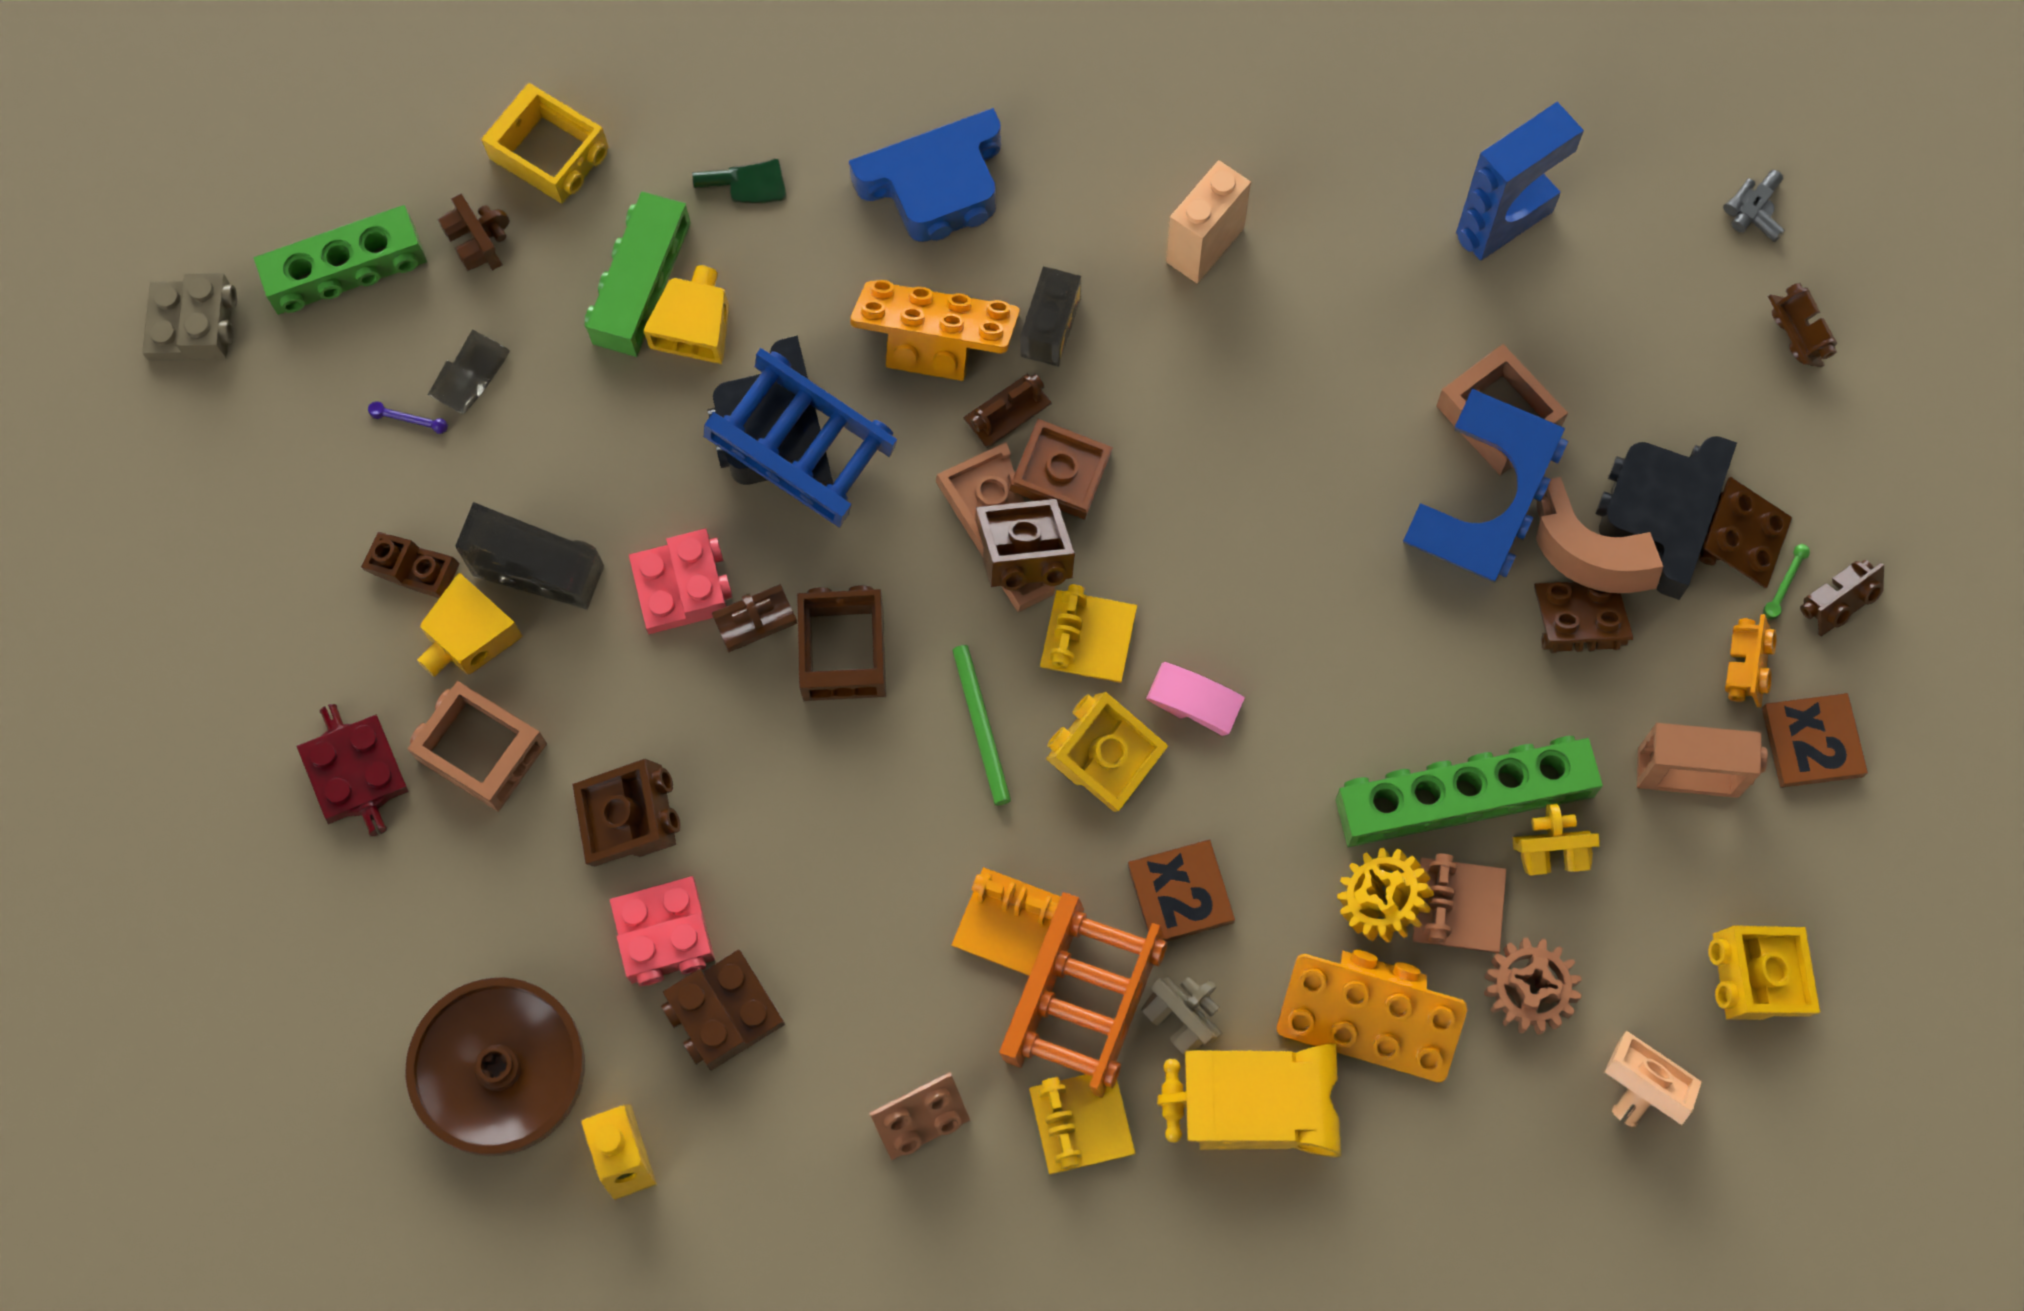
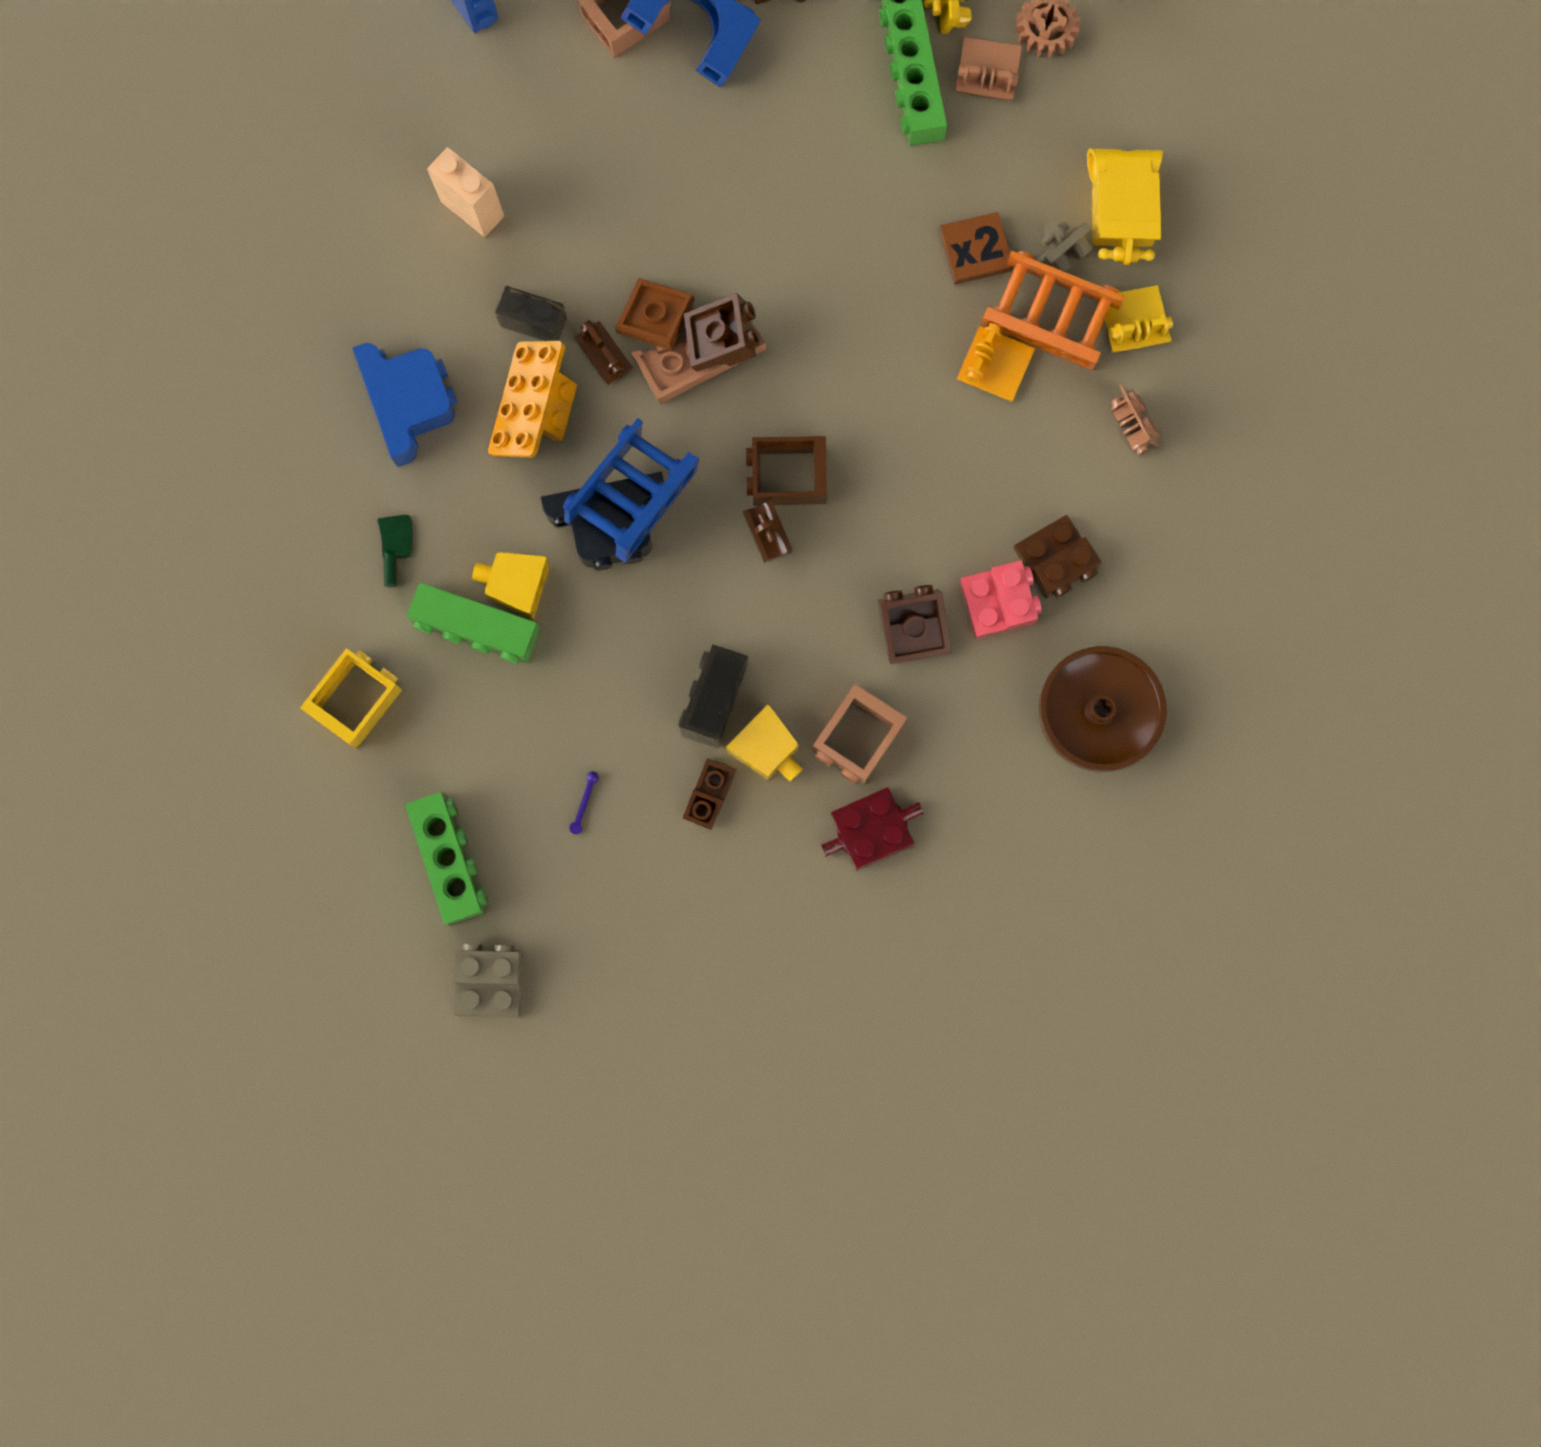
camera: 90 degrees left, 10 degrees up
(470, 373) = (549, 755): clear smoke slope -> none
(479, 248) = (441, 746): reddish brown hips -> none
(618, 1151) = (1159, 623): yellow torso -> none
(680, 581) = (732, 589): coral plate -> none
(981, 725) = (849, 378): bright green bar -> none
(1088, 635) = (785, 301): yellow hinge -> none
(1105, 749) = (874, 290): yellow plate -> none
(1195, 697) = (836, 230): bright pink slope -> none
(1373, 1013) = (1064, 125): light orange bracket -> none
(1403, 891) = (1002, 104): yellow gear -> none

